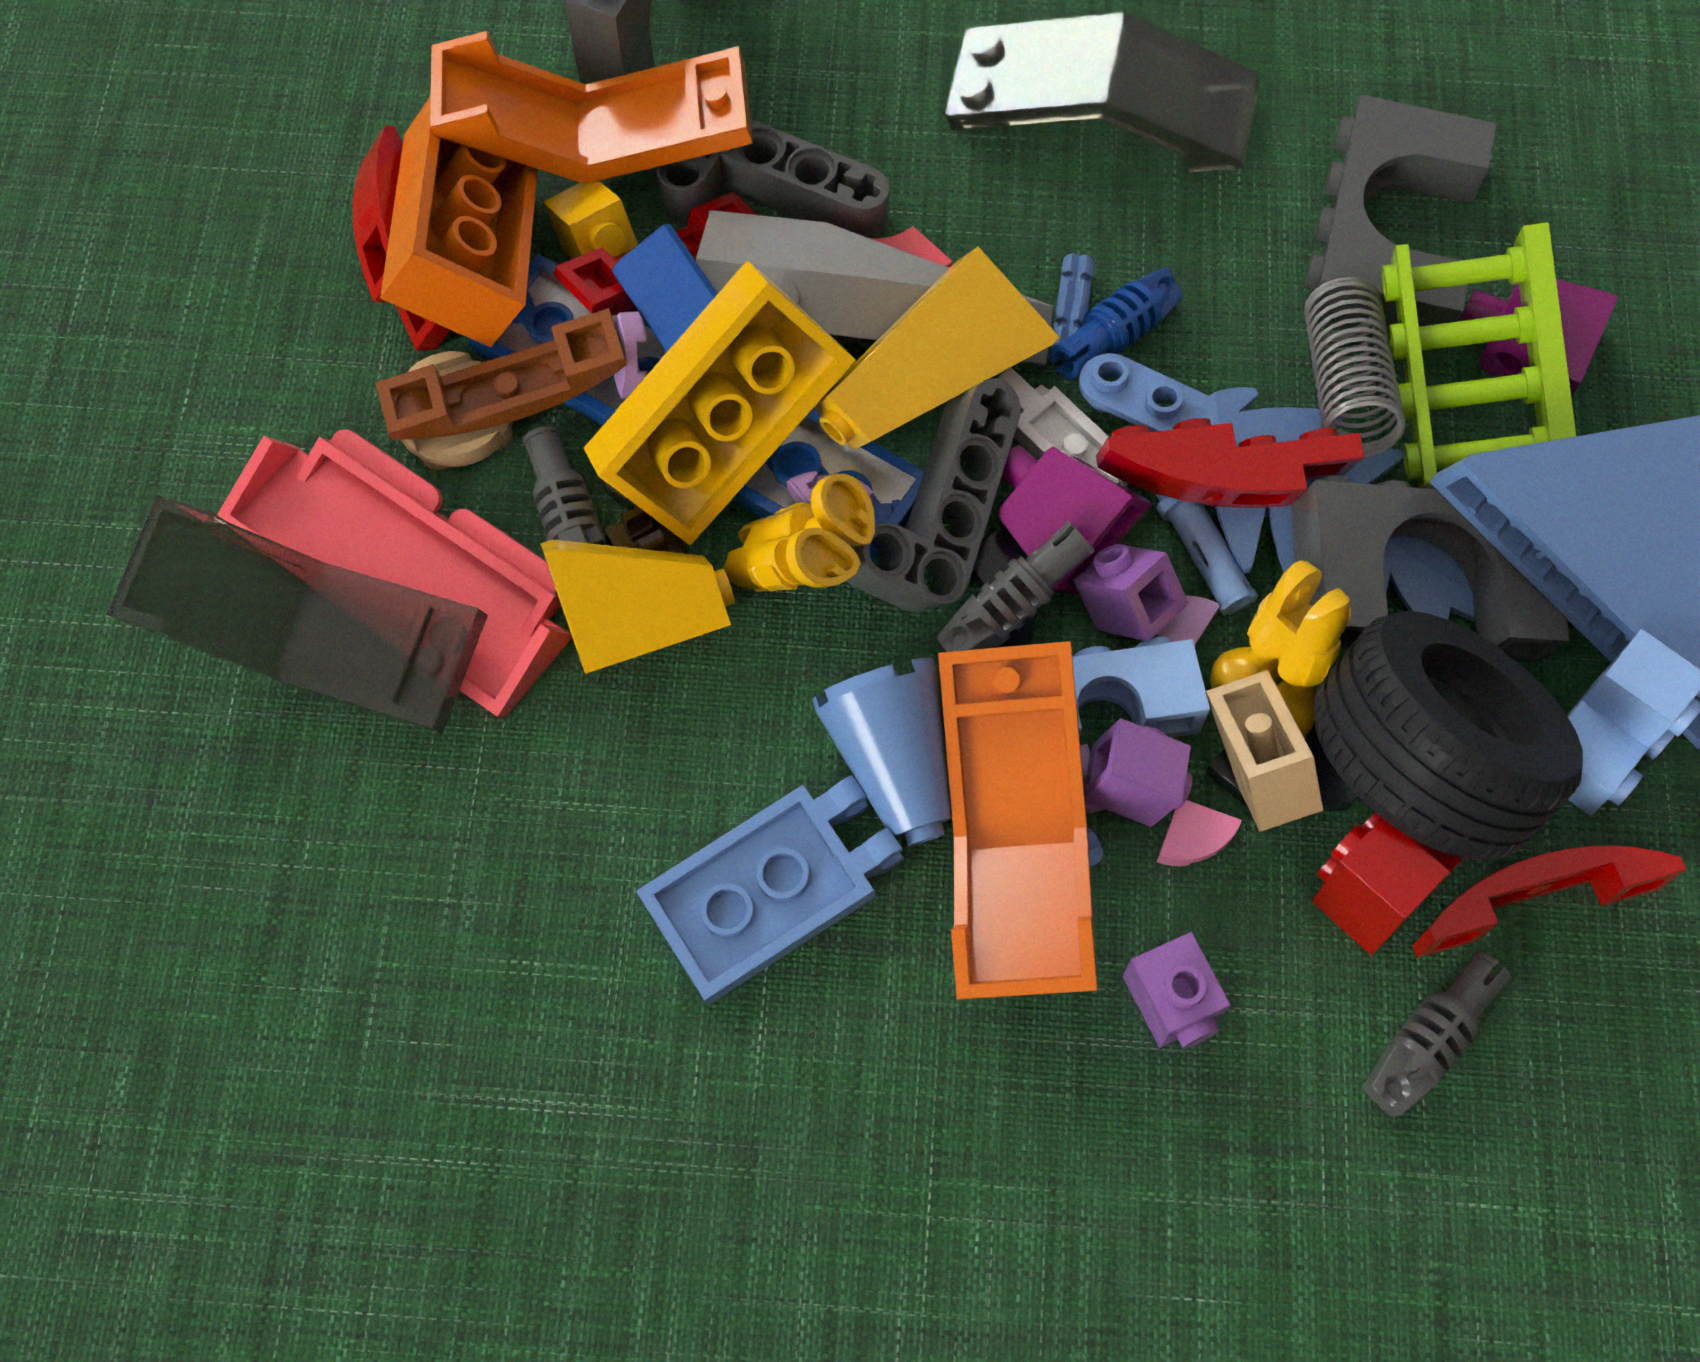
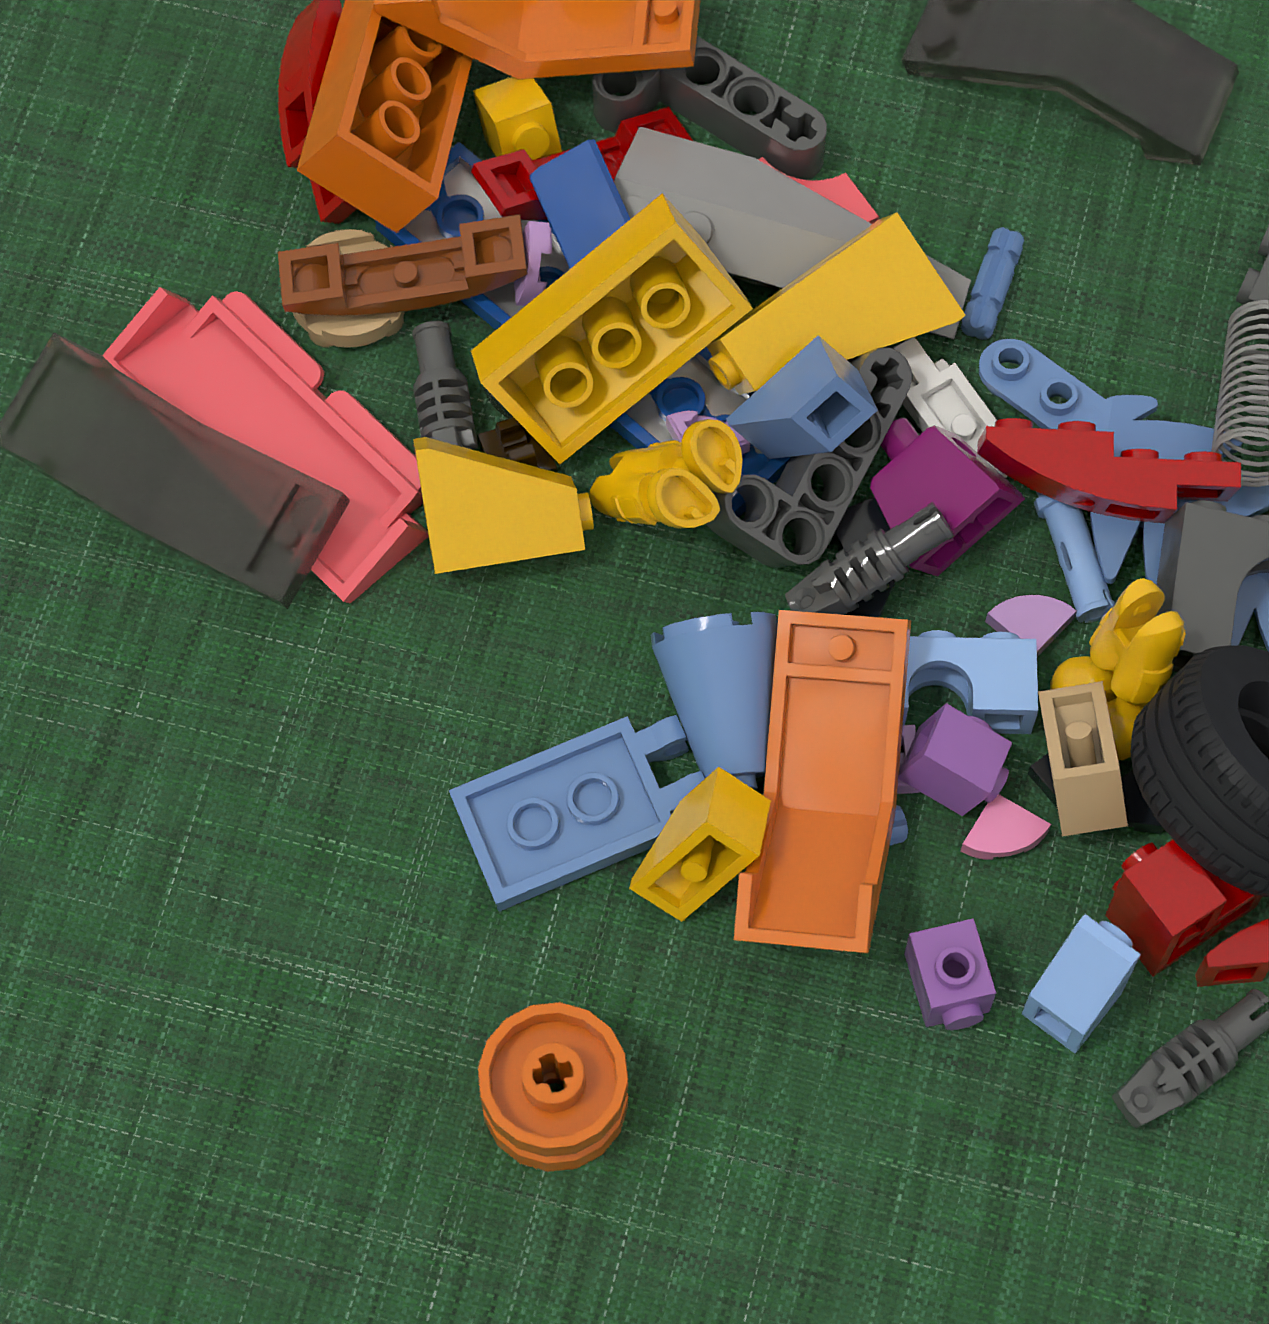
camera: 10 degrees right, 0 degrees up
(791, 1143) = (544, 1048): none -> orange wheel
(905, 903) = (703, 844): none -> yellow slope
(924, 447) = (805, 405): none -> medium blue slope
(1118, 321) = (1035, 306): blue hinge -> none
(1131, 591) = (986, 582): medium lavender brick -> none
(1314, 978) = (1082, 982): none -> light blue slope

